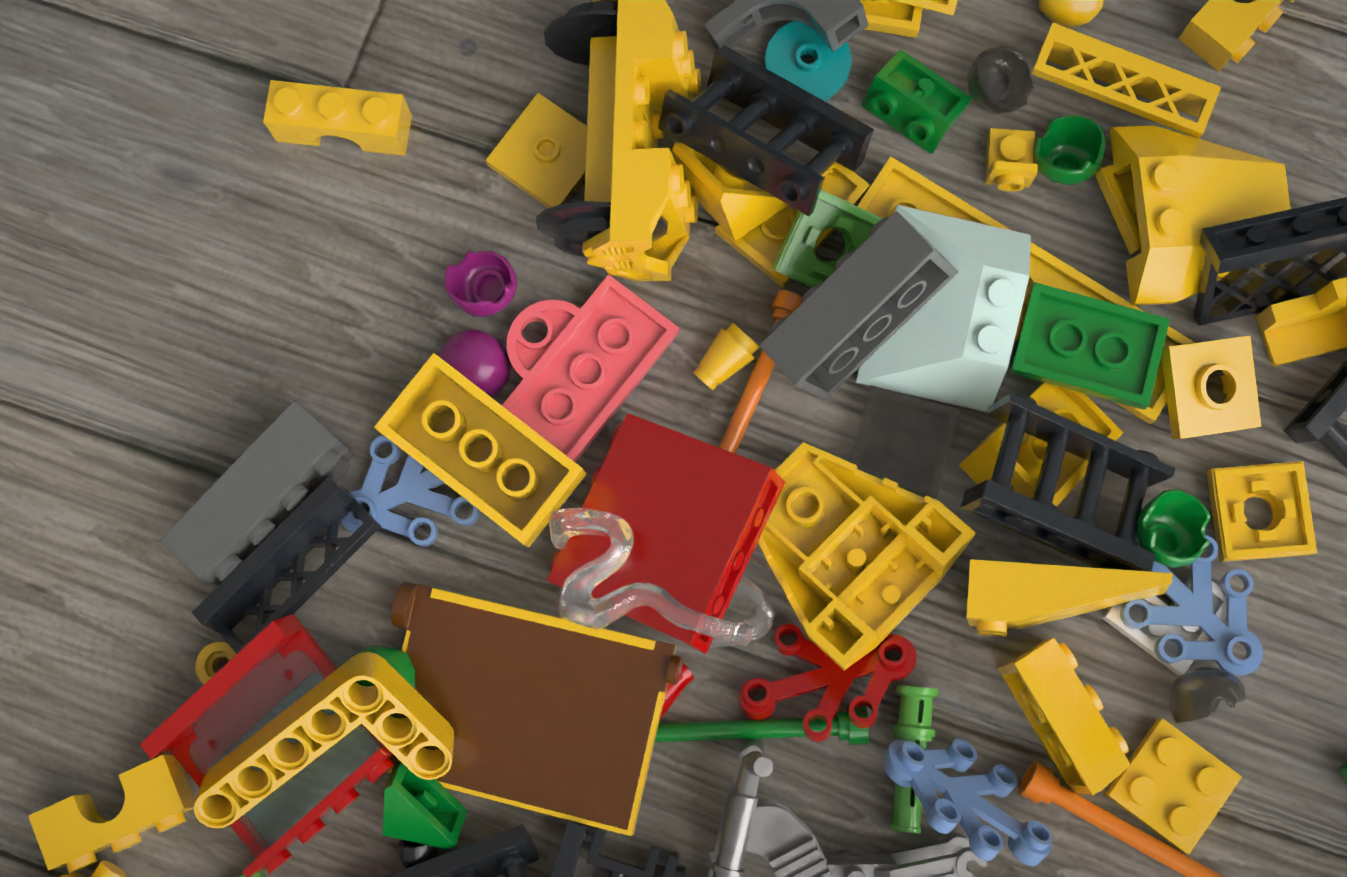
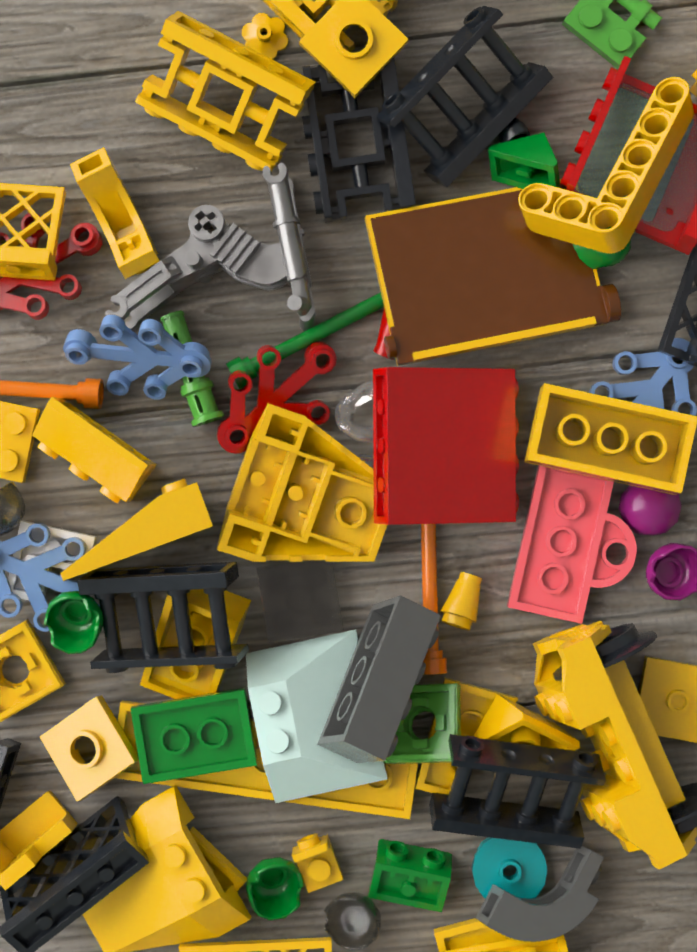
camera: 150 degrees right, 10 degrees up
(596, 613) = (487, 362): clear animal -> none

